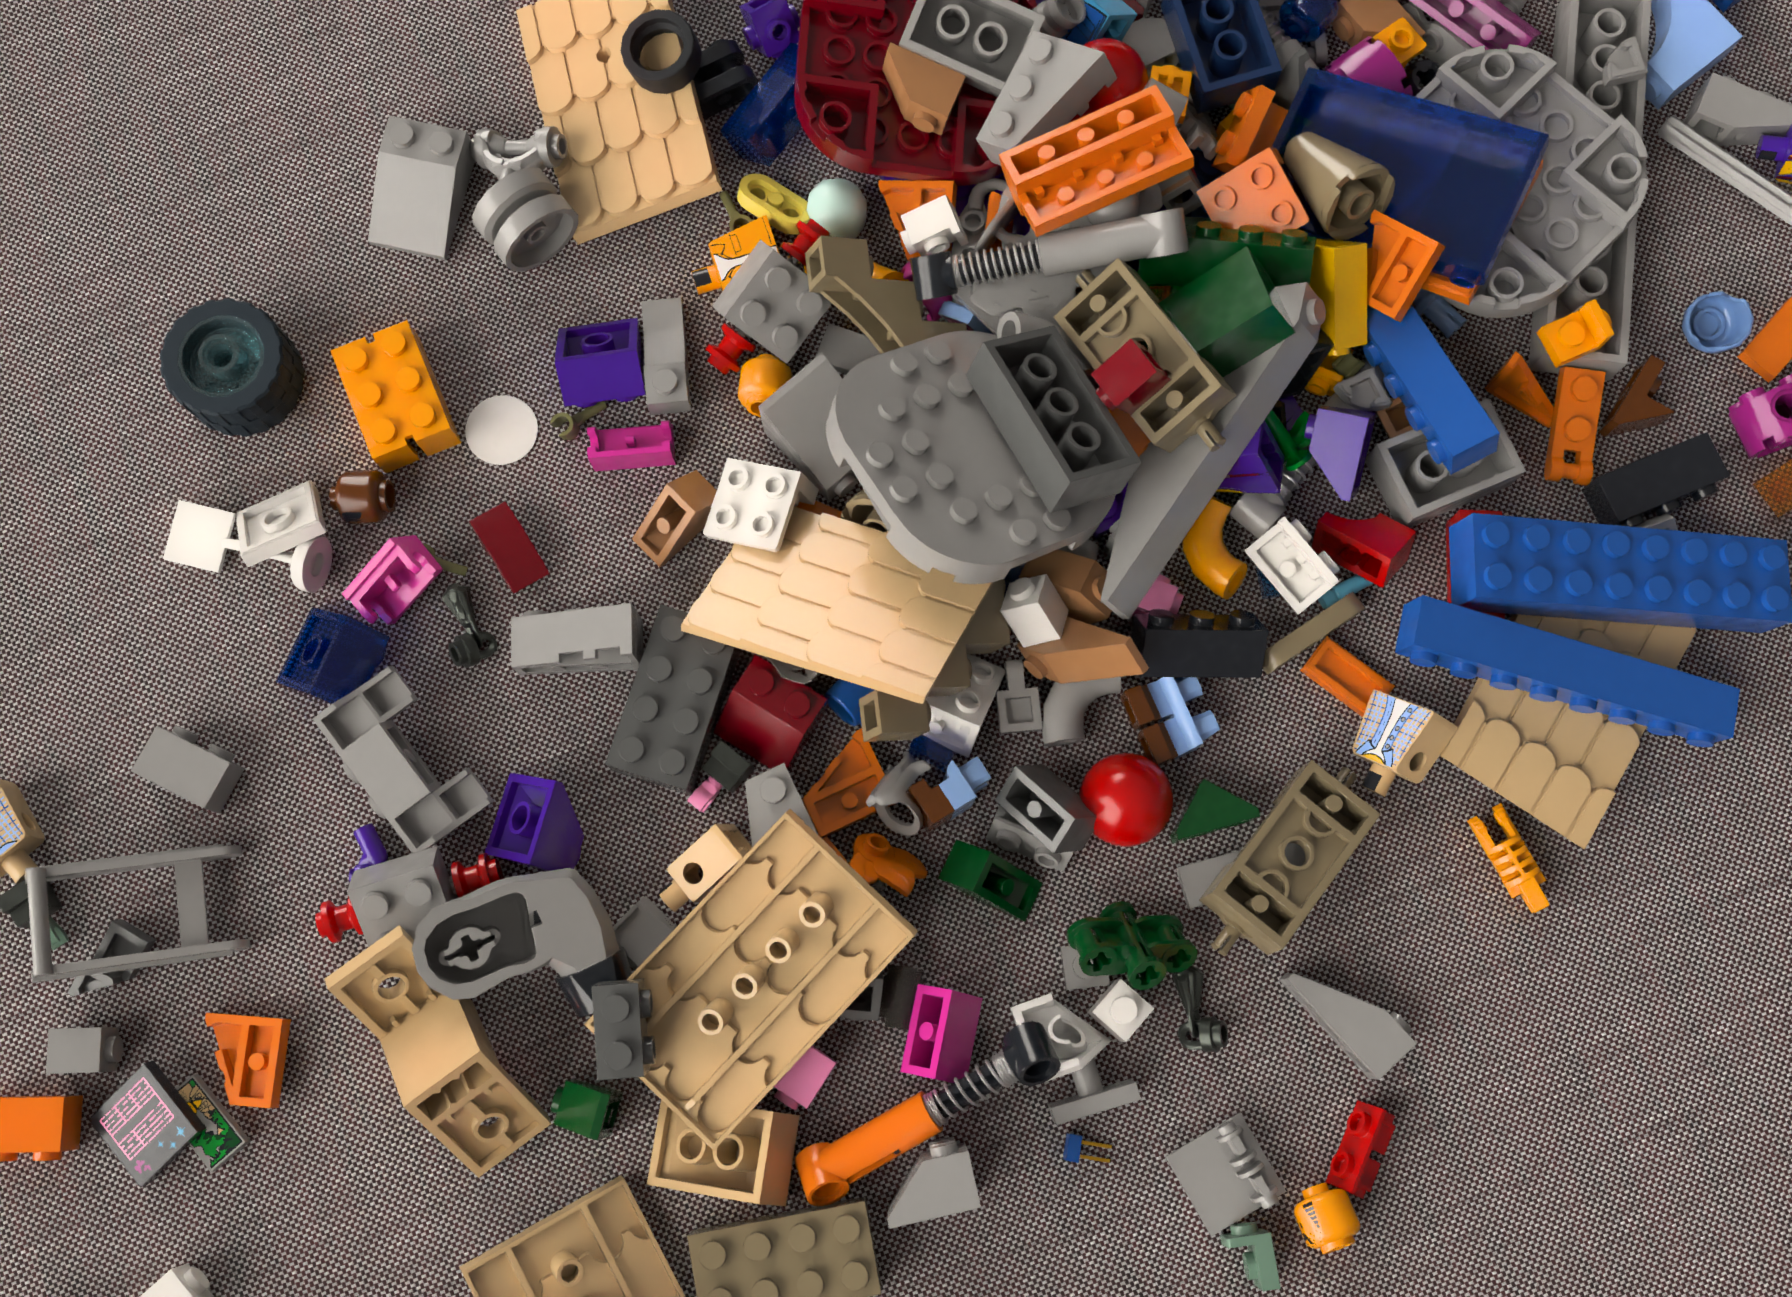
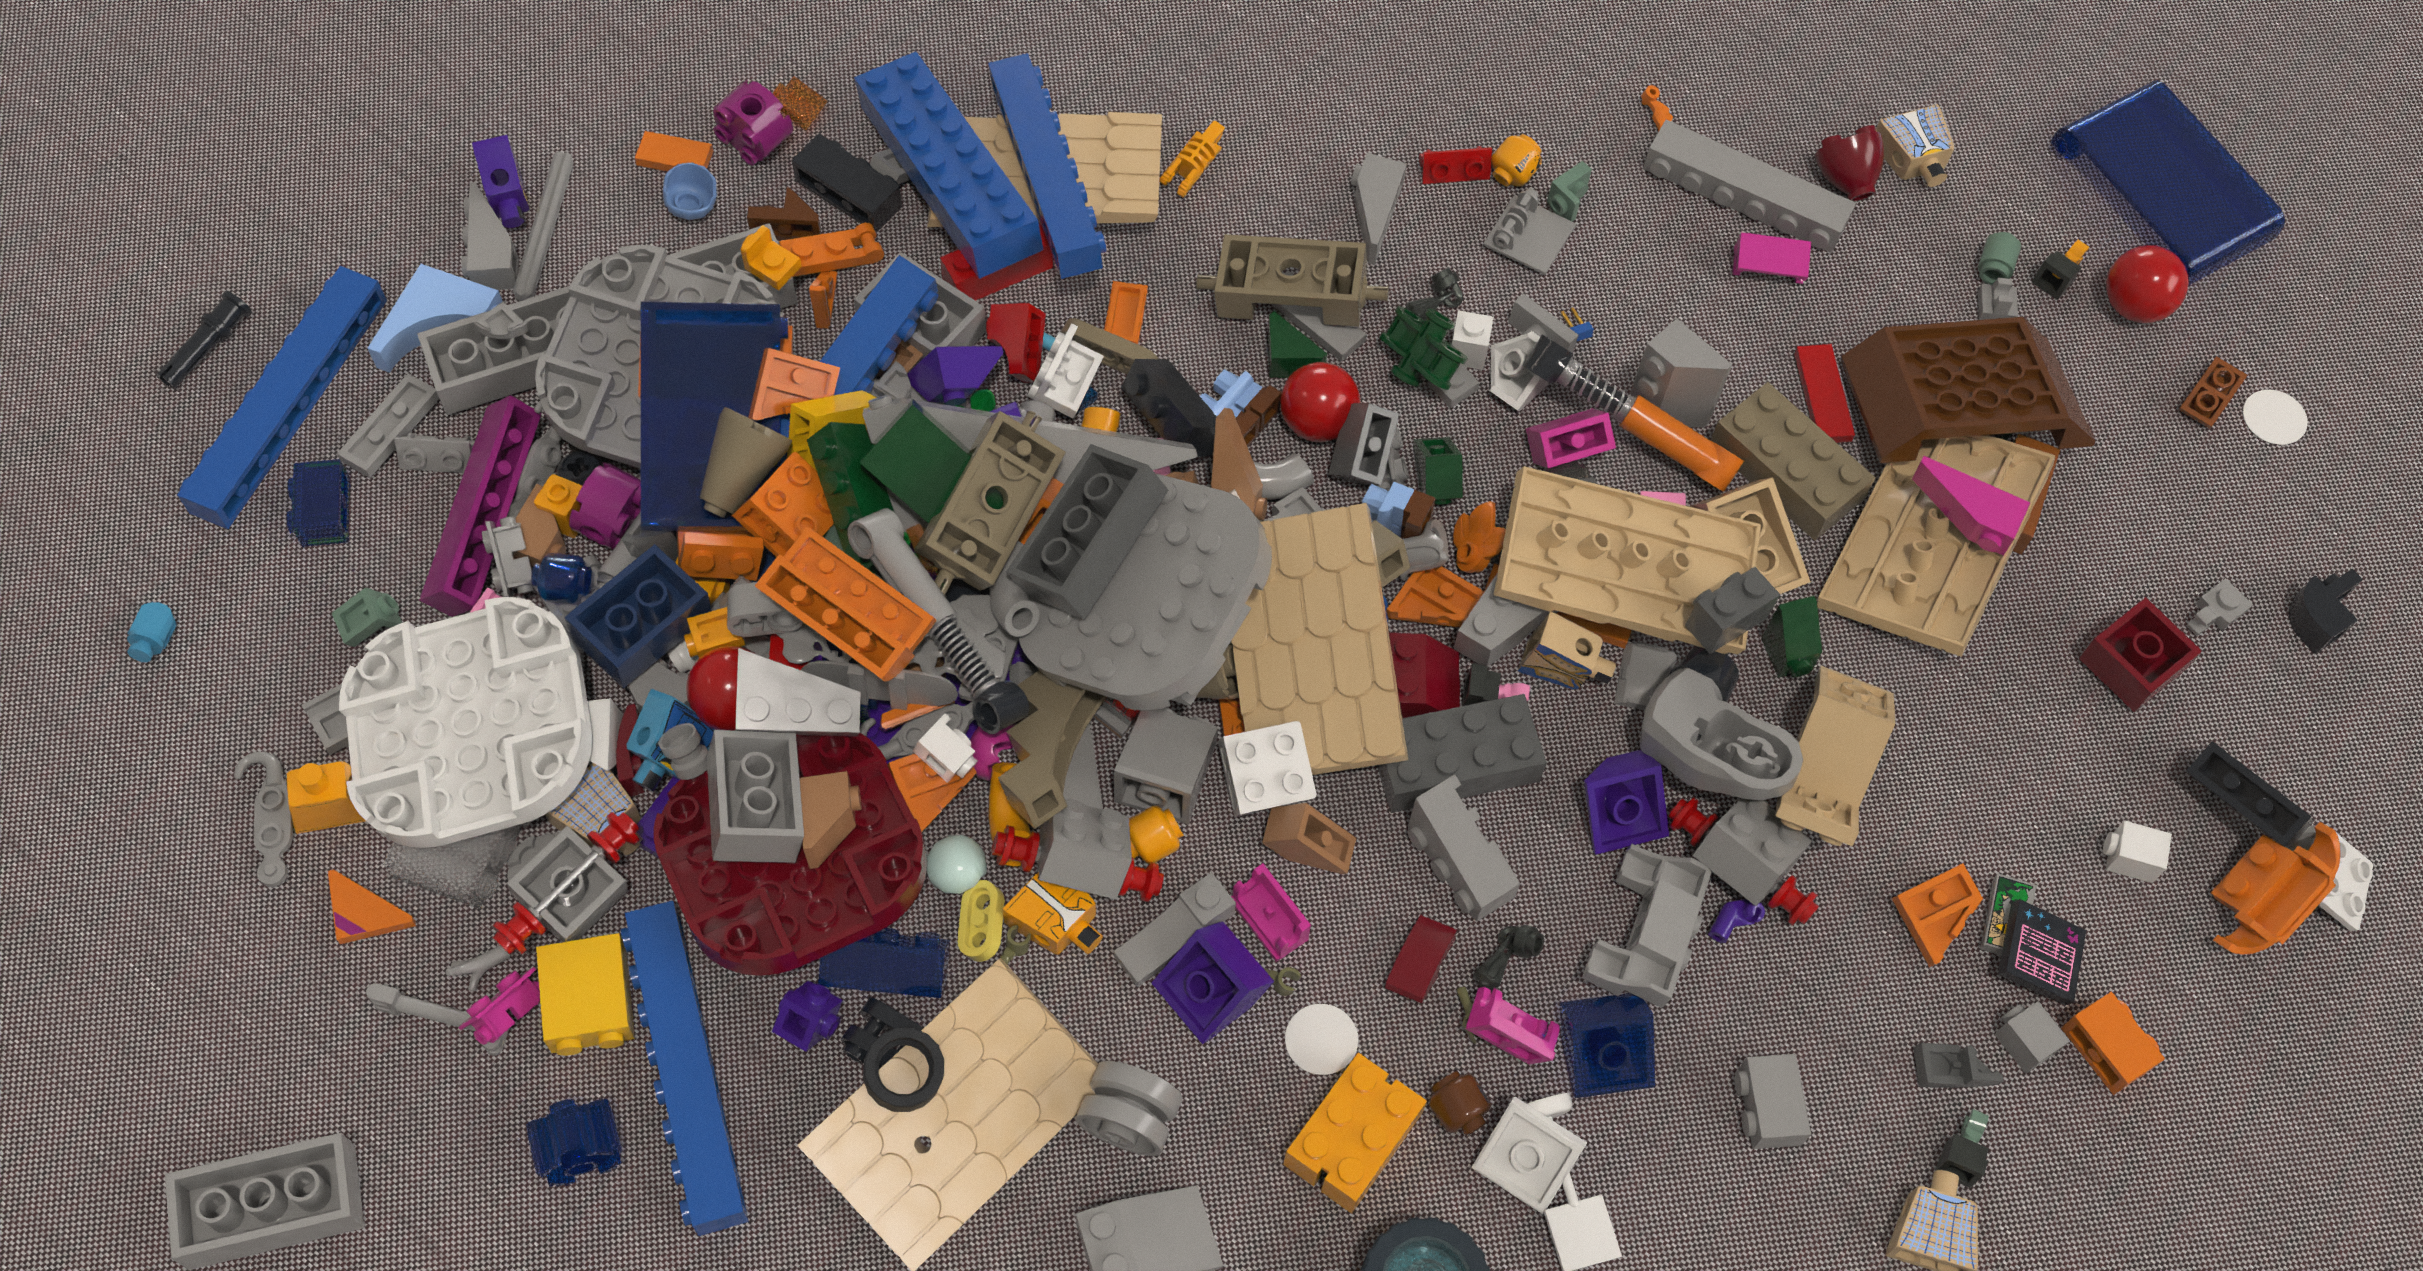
camera: 125 degrees left, 15 degrees down
(190, 902) = (1893, 1003): light grey piece -> none
(540, 151) = (1070, 1193): light grey piece -> none
(1129, 378) = (1027, 482): dark red brick -> none
(1399, 741) = (1159, 252): torso -> none

